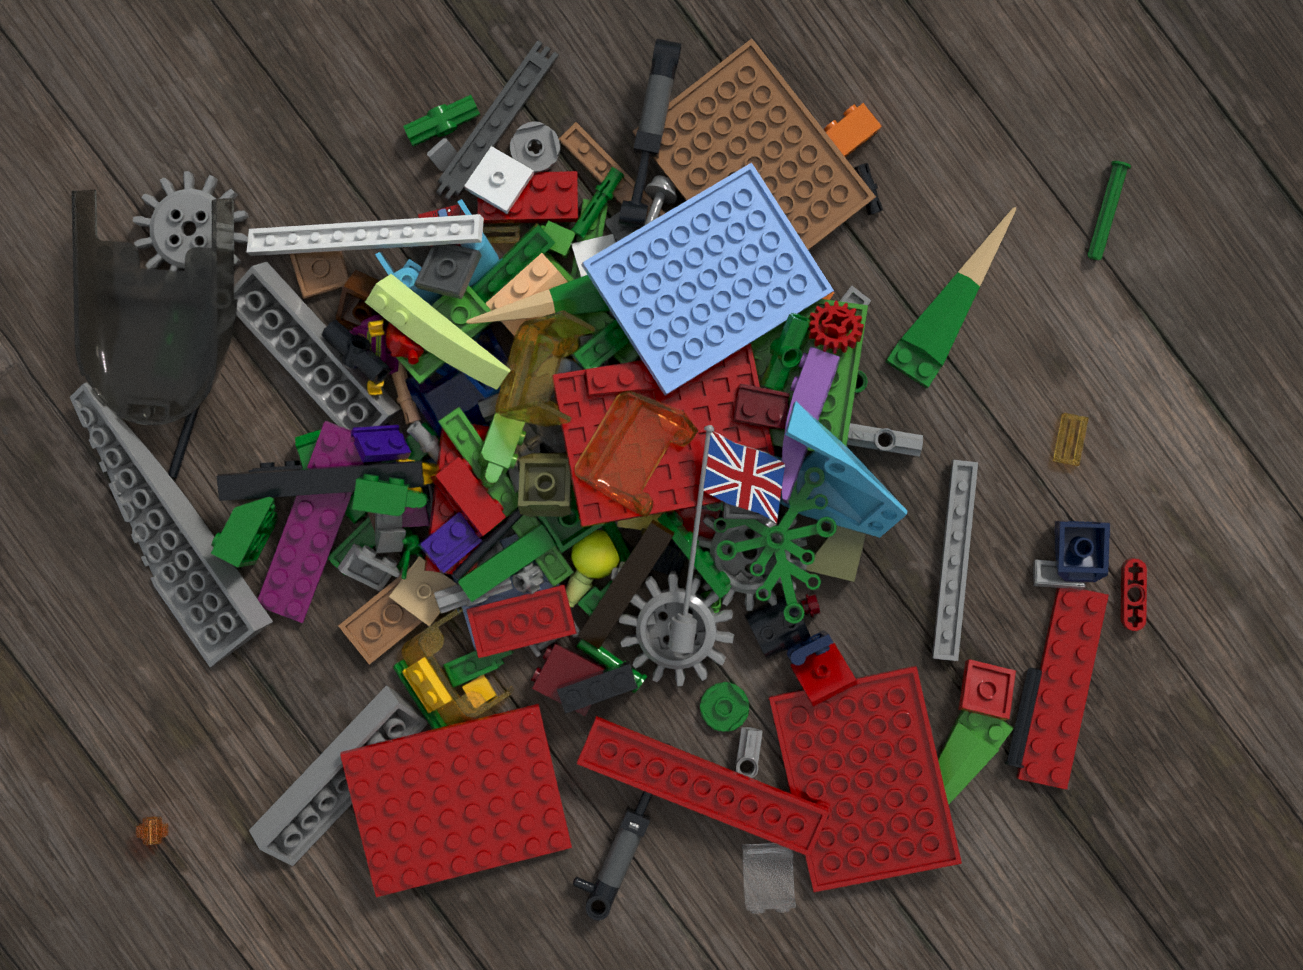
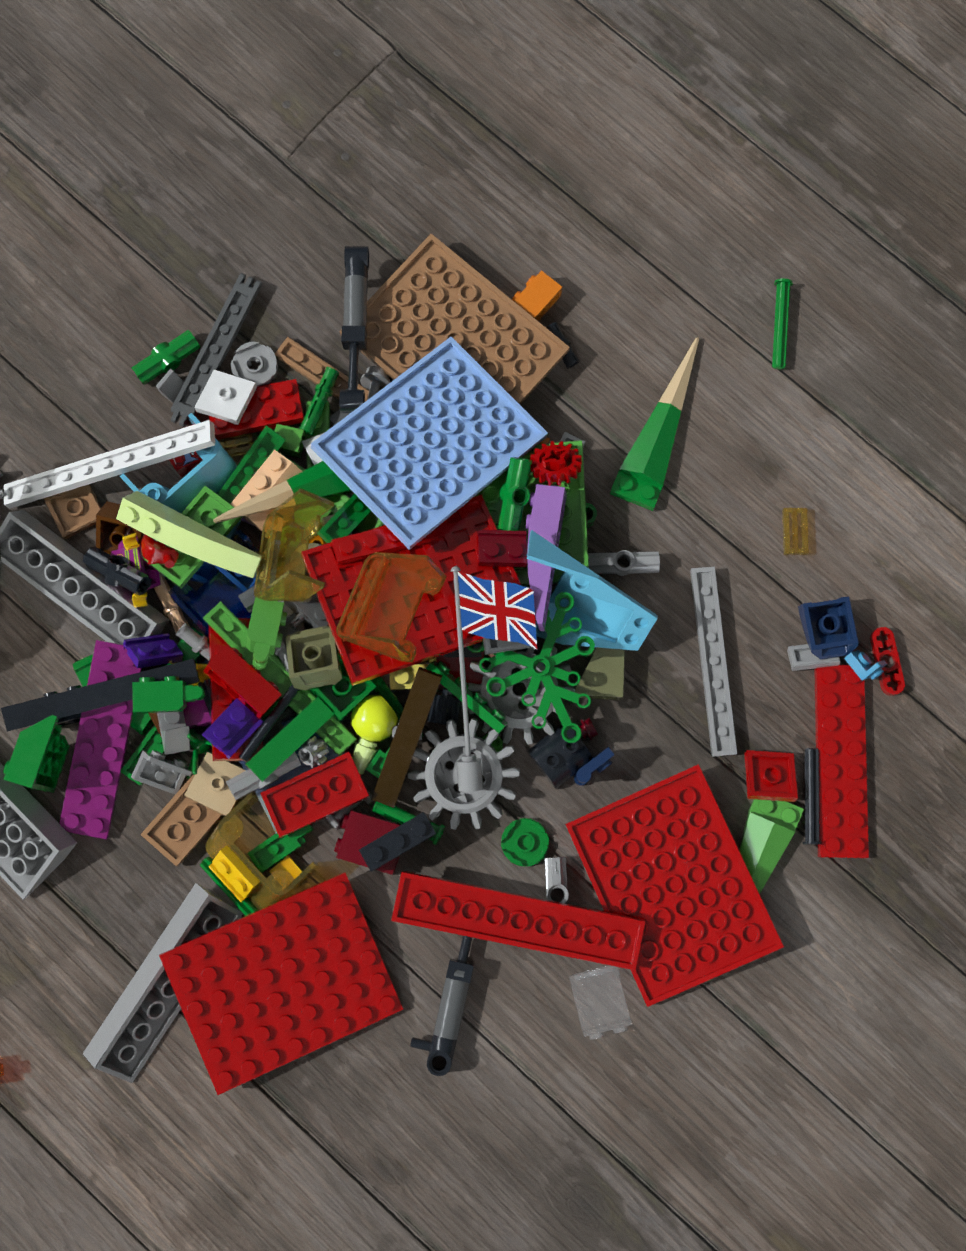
camera: 10 degrees left, 10 degrees down
(448, 270) = (189, 477): dark grey tile -> none
(824, 675) = (612, 790): red plate -> none
(1106, 596) = (861, 665): none -> dark azure bracket

